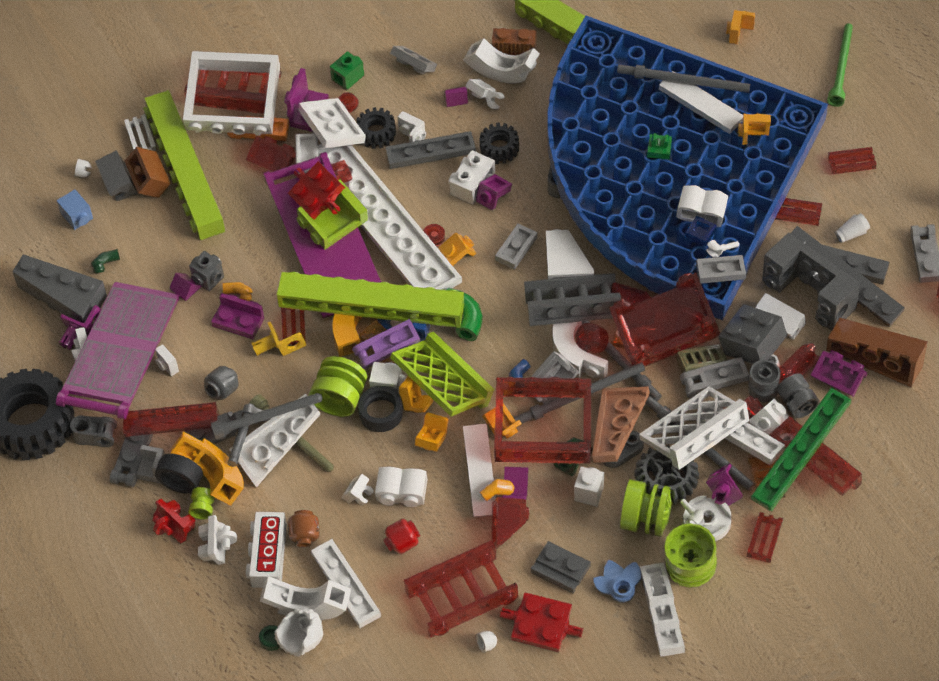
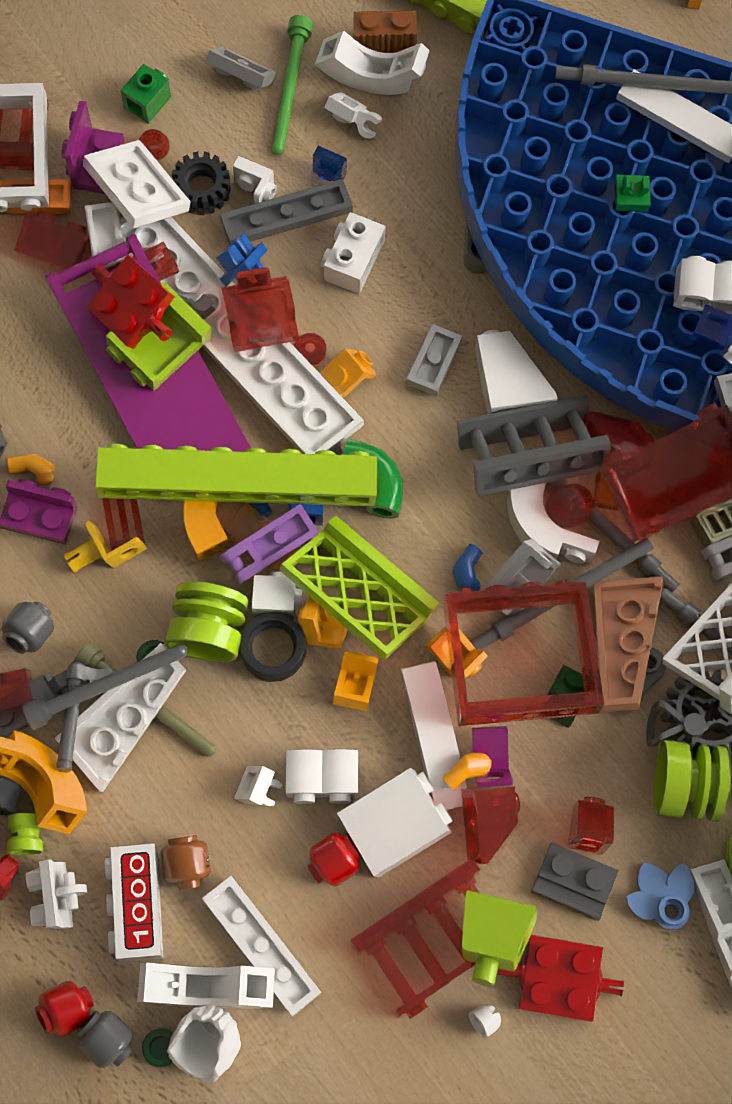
camera: 15 degrees left, 15 degrees up
(212, 605) = (64, 1008): none -> red head
(235, 625) = (105, 1039): none -> dark grey head
(364, 199) = (201, 306): none -> dark grey hand
(391, 173) = (240, 257): none -> blue hips
(401, 204) = (260, 310): none -> clear red panel
(445, 516) = (396, 822): none -> white brick
(456, 96) = (310, 122): magenta slope -> none
(457, 39) = (299, 32): none -> bright green piece
(463, 122) = (329, 164): none -> clear blue plate
(491, 190) = (386, 272): magenta bracket -> none
(498, 580) = (495, 934): none -> lime torso
(499, 133) = (385, 178): black tyre -> none
(574, 532) = (591, 826): none -> clear red slope
(589, 486) = (600, 746): white brick -> none
(651, 474) = (692, 725): none -> dark grey piece

